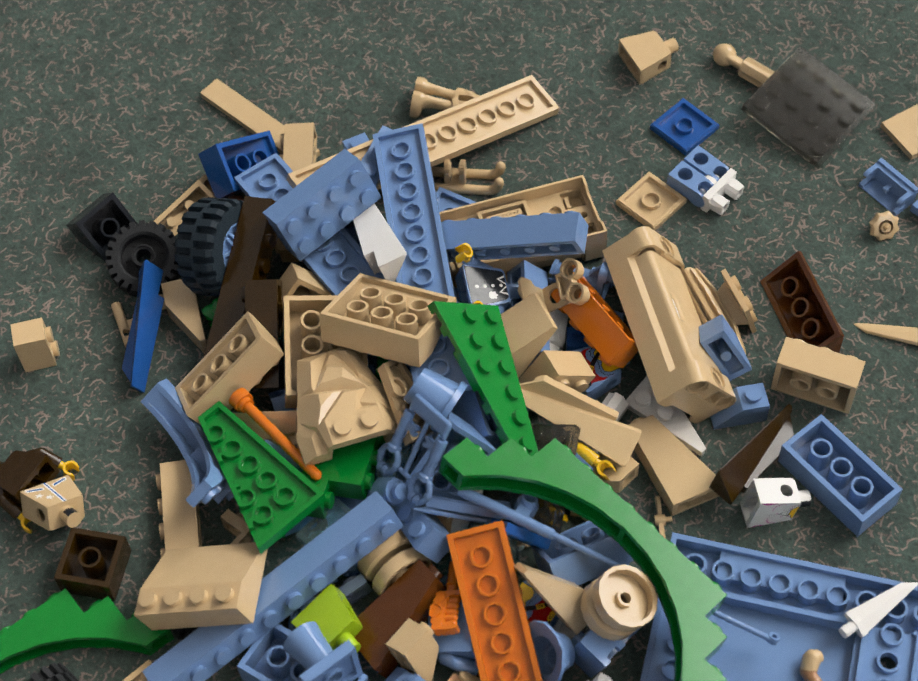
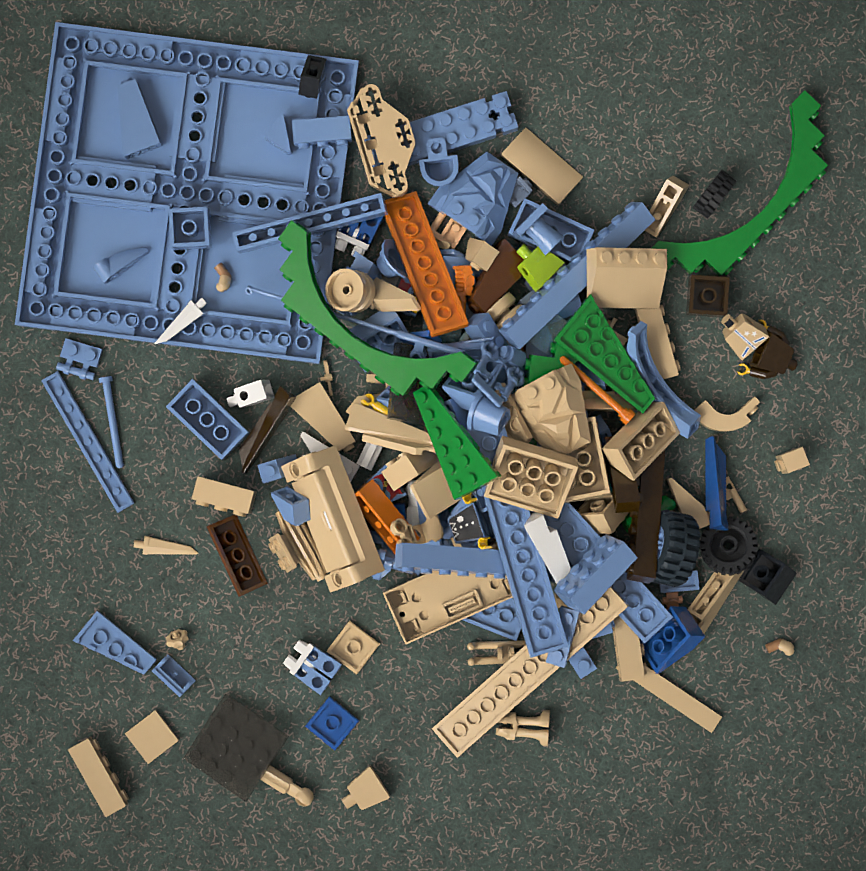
camera: 170 degrees right, 30 degrees up
(108, 158) = (781, 644): none -> arm
(108, 405) = (719, 422): none -> tan arch

